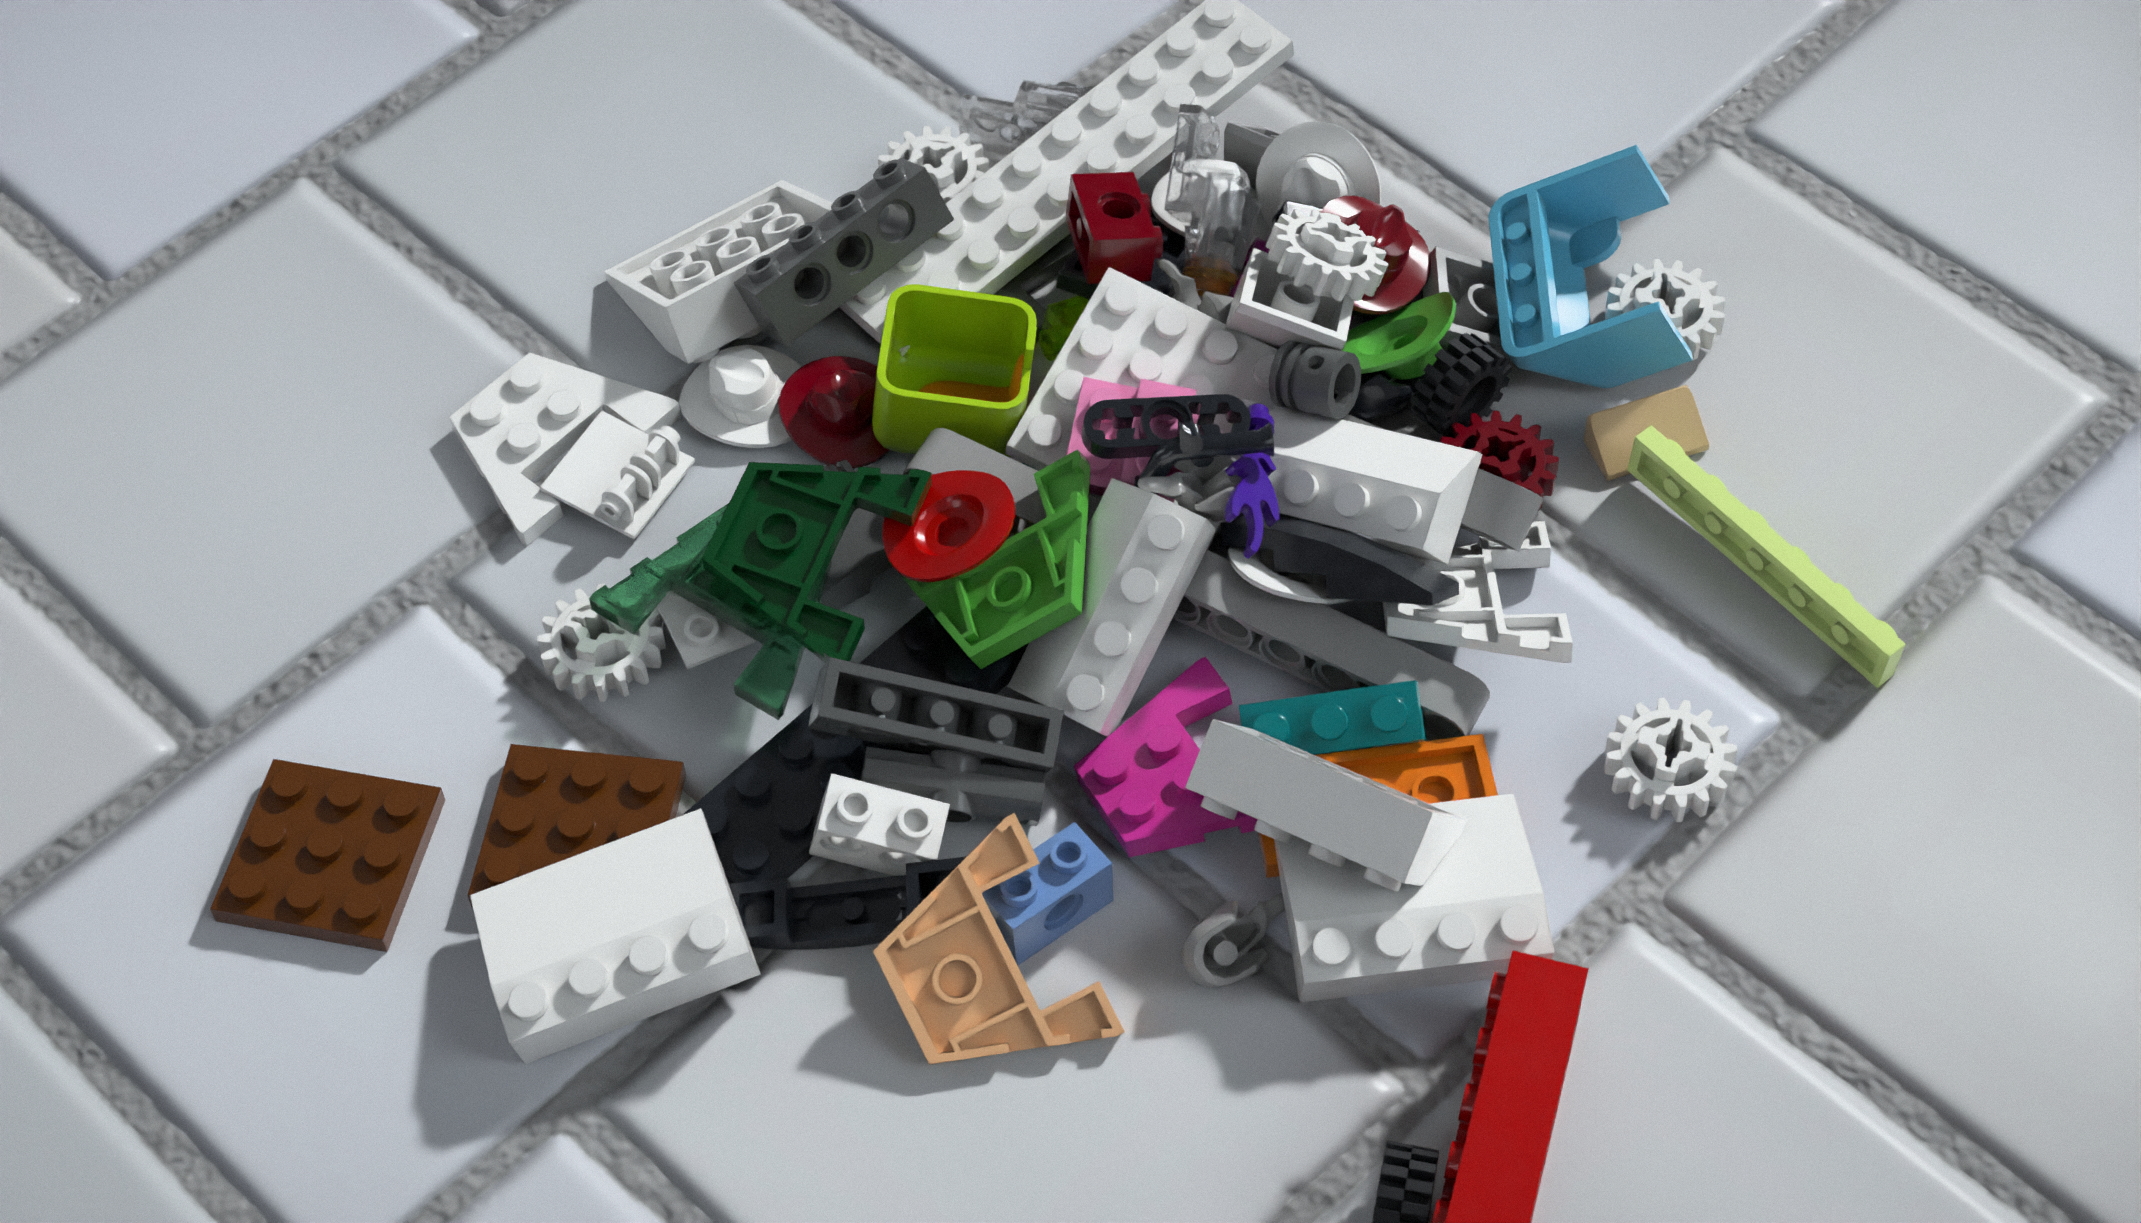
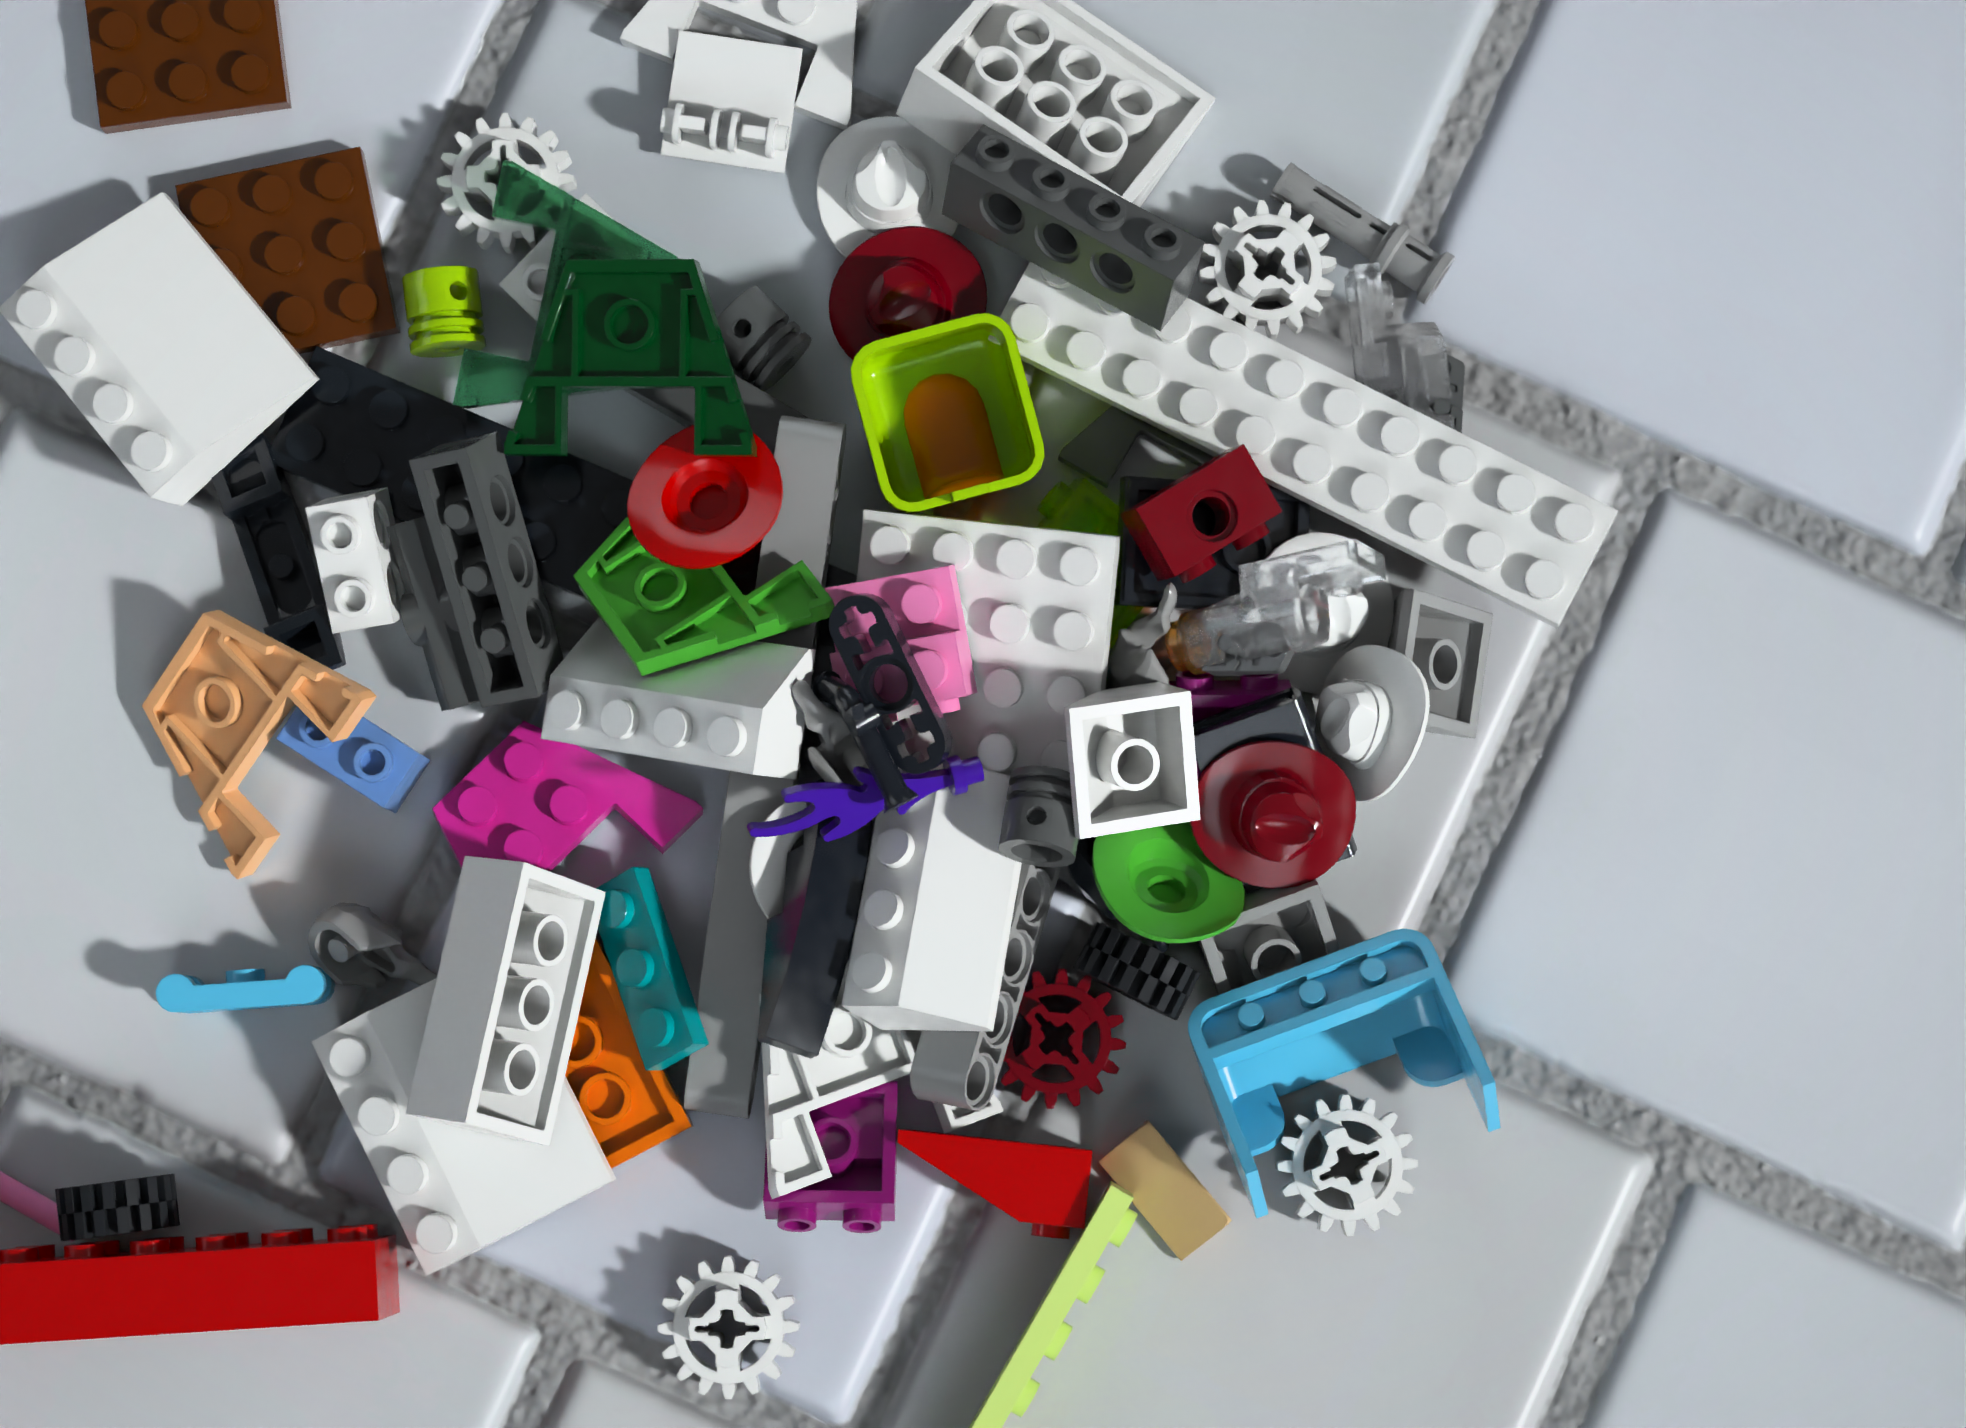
camera: 70 degrees right, 30 degrees up
(688, 715) = (443, 311): none -> lime piece
(934, 113) = (1373, 238): none -> light grey pin
(1232, 1051) = (245, 991): none -> medium azure plate
(1326, 255) = (1171, 769): white gear -> none
(1544, 681) = (861, 1154): none -> magenta plate
(1602, 526) = (1021, 1178): none -> red slope

